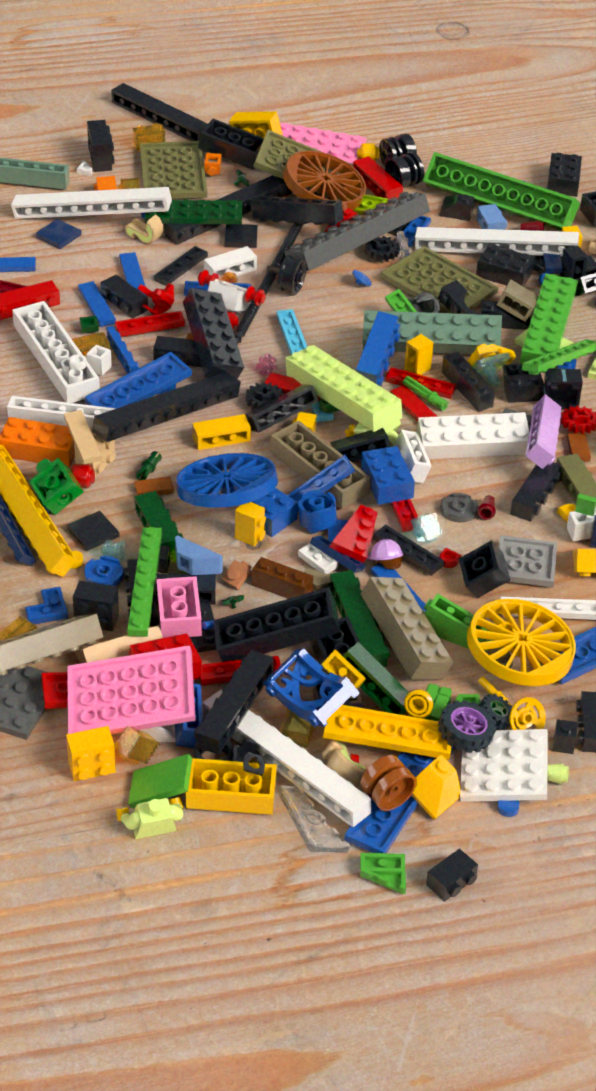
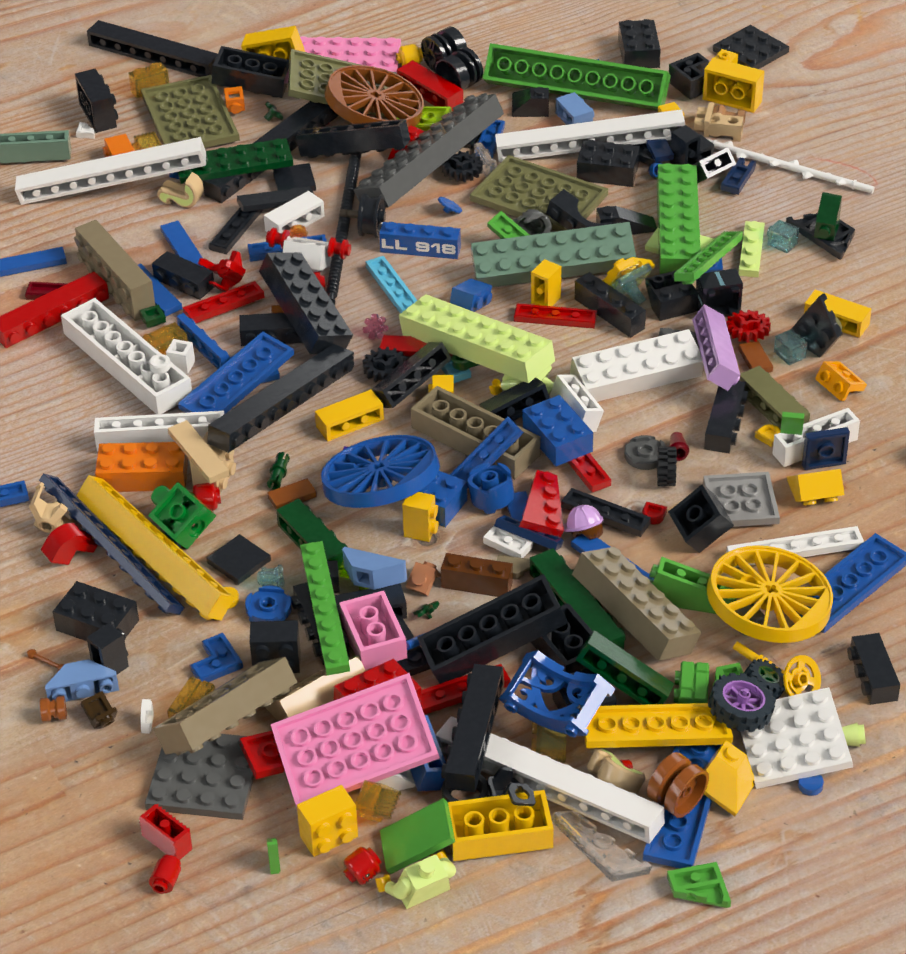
camera: 10 degrees left, 0 degrees up
(39, 772) = (273, 855): none -> bright green tile
(58, 233) = (79, 212): dark blue tile -> none
(69, 280) = (108, 259): none -> dark tan brick
(108, 795) = (362, 865): none -> red head
(214, 248) = (270, 199): none -> black tile
(327, 301) = (420, 240): none -> blue brick
(340, 666) = (582, 662): yellow brick -> none
(349, 352) = (471, 294): none -> blue brick
(379, 347) = (503, 282): blue brick -> none
(412, 403) = (562, 346): red tile -> none
(418, 703) = (681, 687): yellow brick -> none
(426, 527) = (619, 482): clear light blue brick -> none
(431, 397) = (569, 328): bright green axle -> none
(452, 875) = (776, 874): black brick -> none
(470, 521) = (666, 466): none -> black tyre
(517, 300) = (637, 200): dark tan brick -> none
(533, 226) = (623, 111): dark red cone -> none
(565, 736) = (848, 691): black brick -> none

